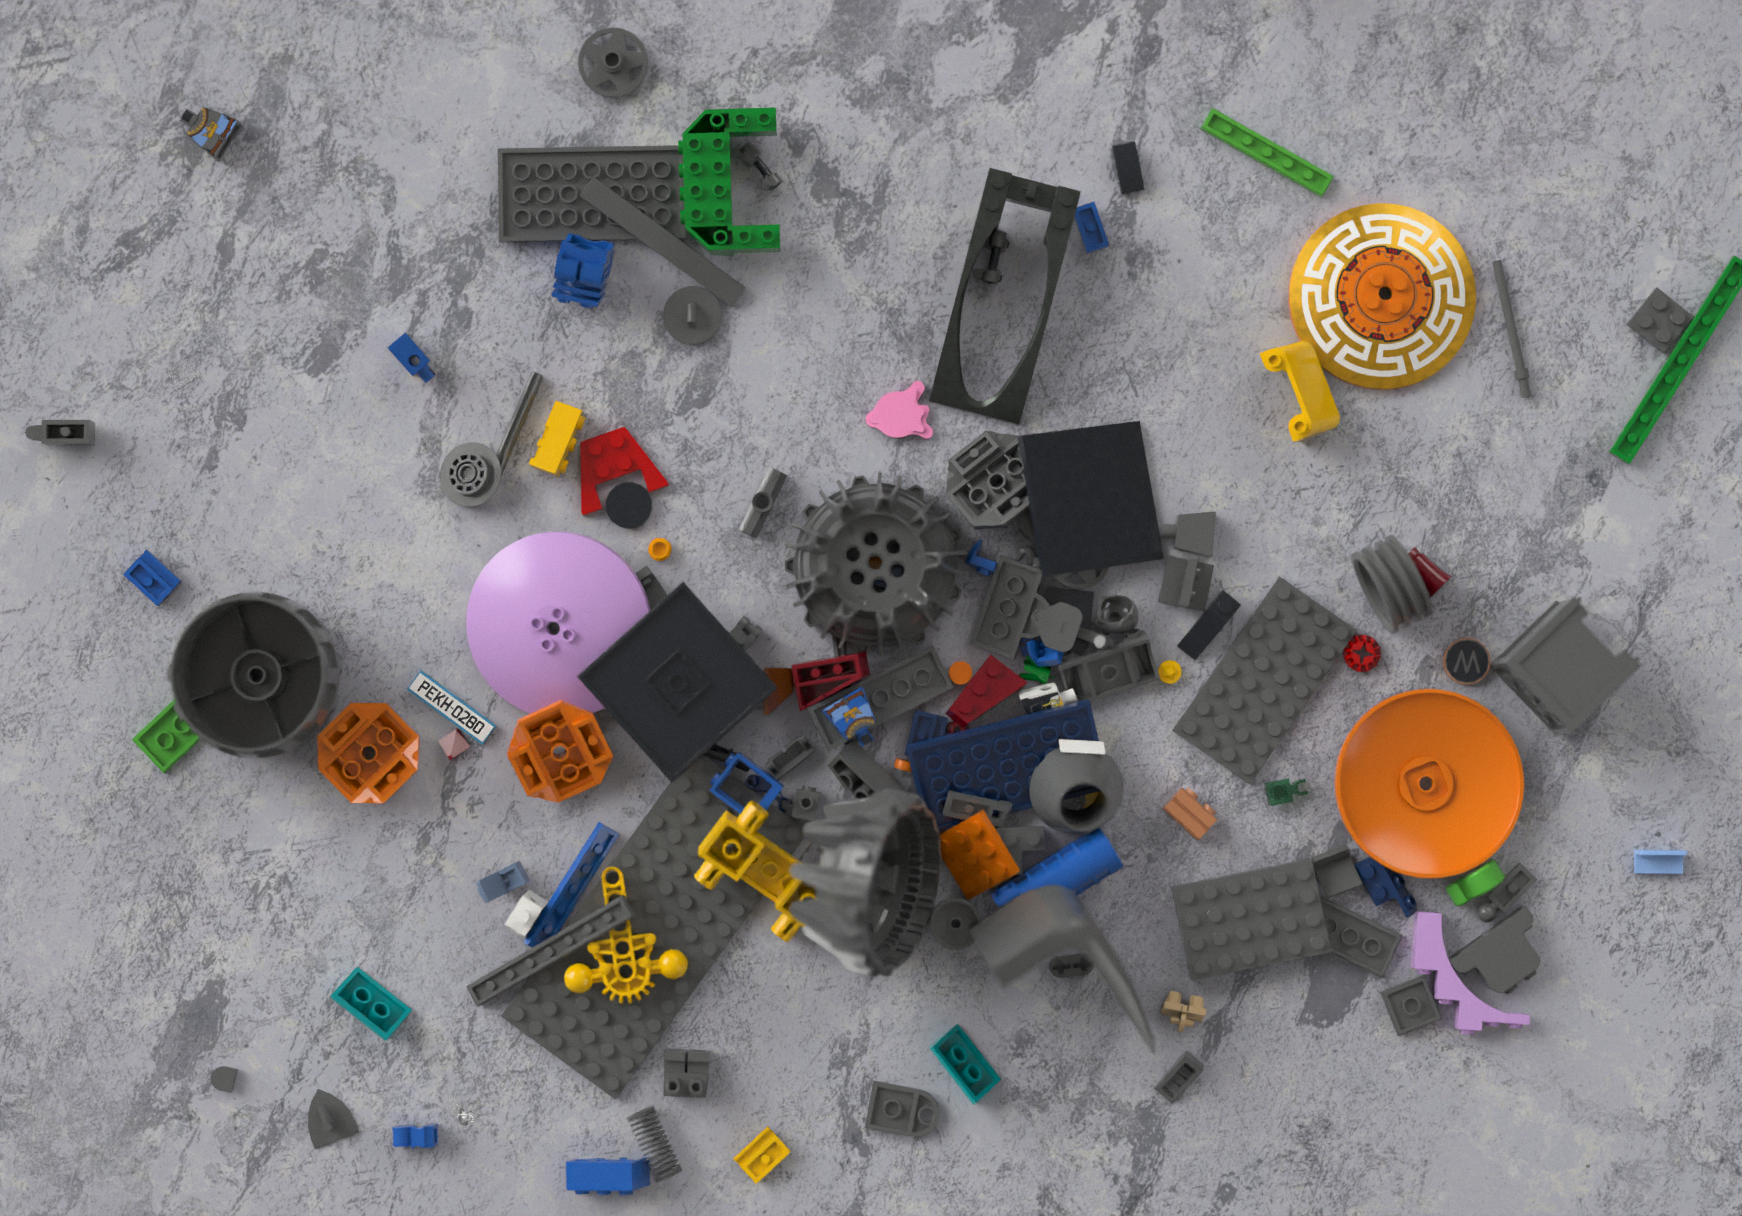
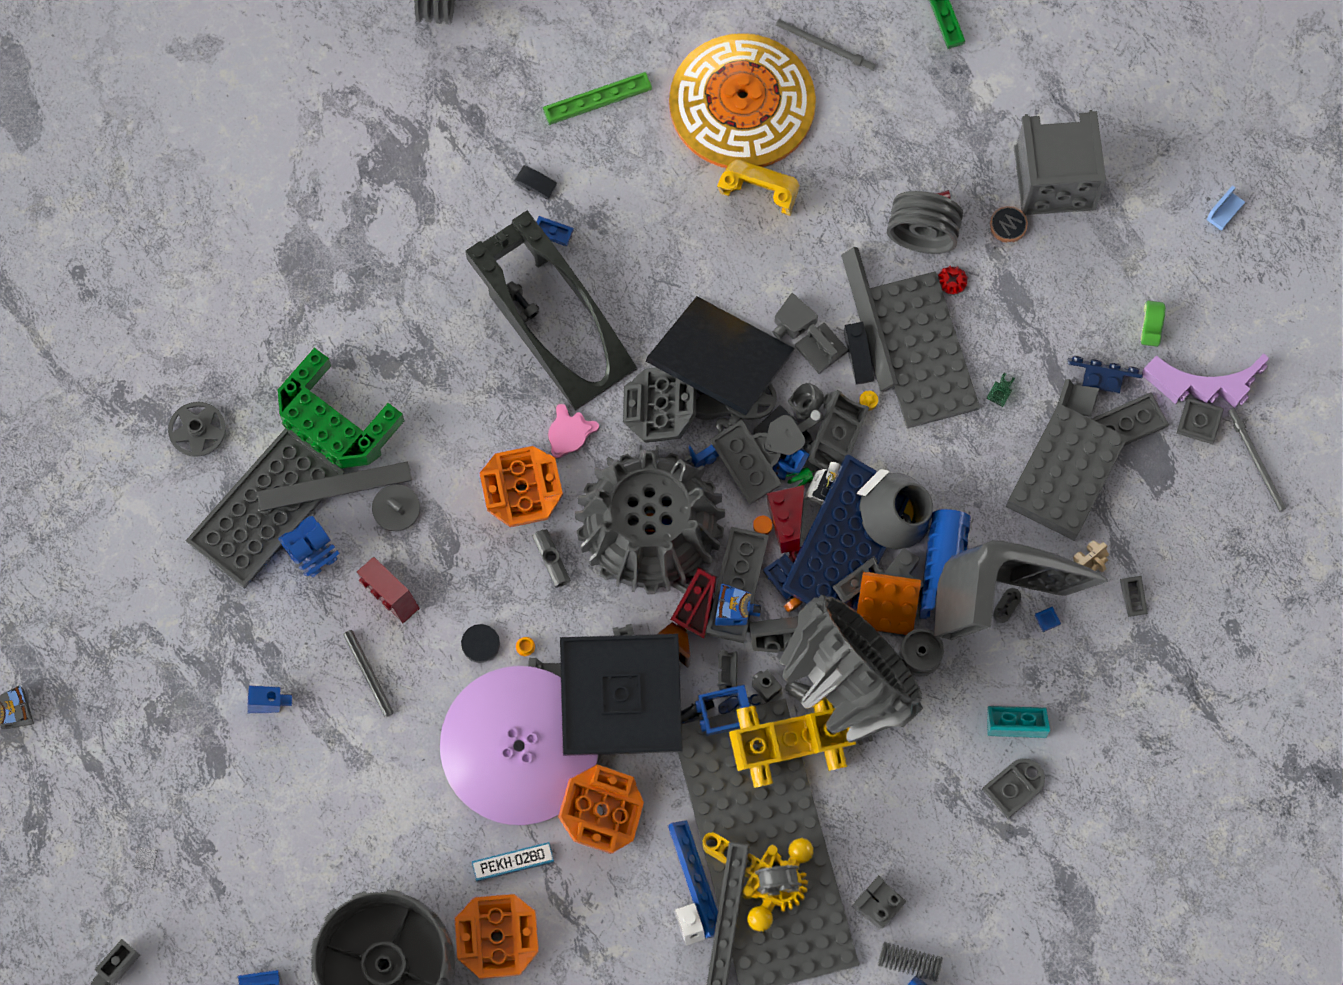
camera: 50 degrees left, 15 degrees down
(454, 744) = (537, 880): slope -> none
(469, 474) = (373, 725): wheel -> none
(502, 882) = (655, 918): sand blue bracket -> none
(558, 439) = (400, 651): yellow wedge -> none
(605, 376) = (388, 589): none -> dark red wedge
(609, 458) = (440, 630): red wing -> none
(620, 970) = (778, 879): none -> dark grey wheel
(750, 157) = (330, 393): dark grey piece -> none
(762, 1154) = (973, 898): yellow plate -> none
(799, 392) = (521, 467): none -> orange piece
(1089, 1013) = (1047, 619): none -> blue tile
(1190, 813) = (968, 456): nougat brick -> none
(1252, 606) = (868, 314): none -> dark grey tile
(1437, 1047) = (1240, 427): none -> dark grey bar
(1472, 790) = (1074, 269): orange dish -> none
(1501, 953) = (1210, 341): dark grey brick -> none
(1506, 893) = (1174, 310): dark grey plate -> none

